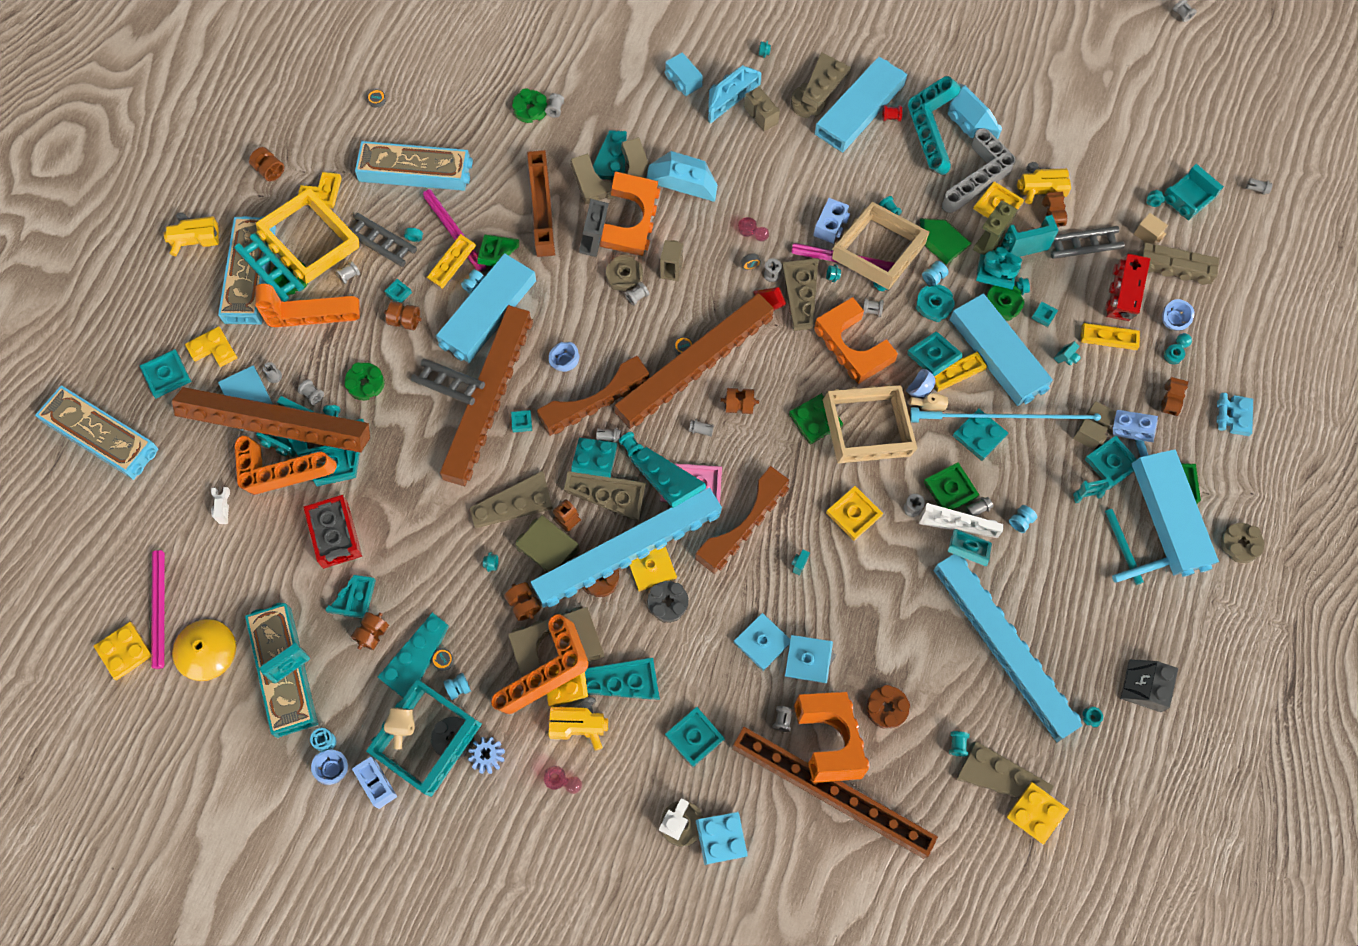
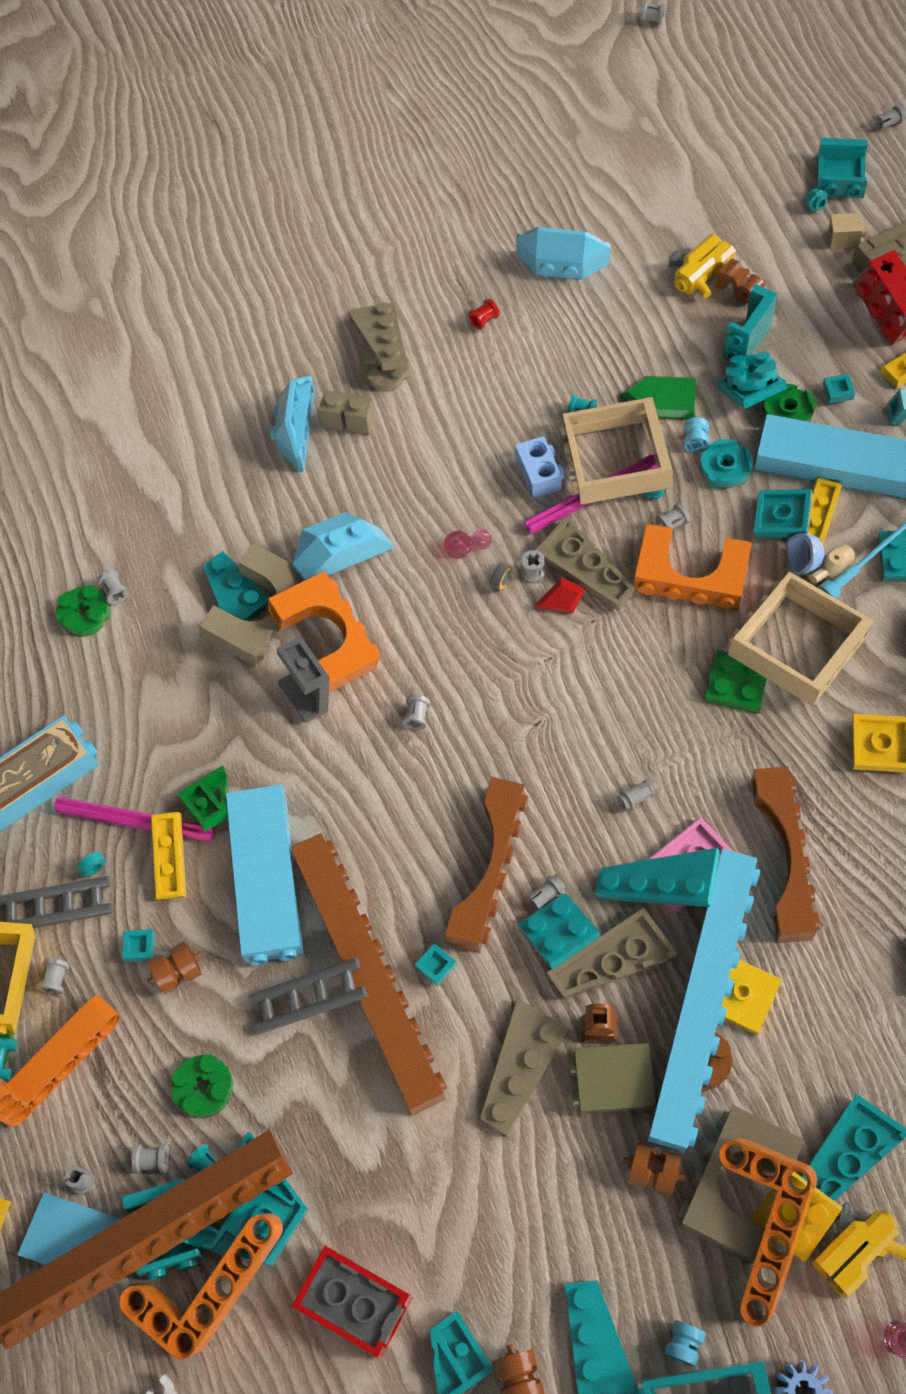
camera: 35 degrees left, 5 degrees down
(442, 659) = (633, 1328): dark grey tile -> none
(473, 281) = (219, 857): medium azure wheel -> none
(490, 562) = (568, 1158): teal plate -> none
(541, 203) = (237, 727): dark orange arch -> none
(565, 361) = (413, 855): light blue helmet -> none
(621, 282) = (379, 688): dark tan plate -> none
(630, 443) = (582, 880): teal bush -> none
(671, 260) = (421, 643): dark tan piece -> none
(676, 608) = (804, 1033): dark grey plate -> none
(682, 344) = (523, 725): dark grey tile -> none
(683, 74) = (225, 441): medium azure piece -> none
(693, 361) = (553, 735): dark orange brick -> none
(739, 401) = (650, 727): dark orange wheel -> none
(764, 49) = (284, 352): teal plate -> none
(799, 561) = (887, 843): teal plate -> none
(833, 273) = (596, 518): teal plate -> none
(860, 104) = (443, 330): medium azure brick -> none
(921, 110) = (535, 296): teal beam -> none
(992, 198) = (681, 320): yellow plate -> none
(996, 228) = (714, 348): olive panel -> none
(998, 166) = (634, 277): light grey beam -> none
(1023, 285) = (790, 375): teal plate -> none
(1092, 234) = (797, 279): dark grey bar -> none

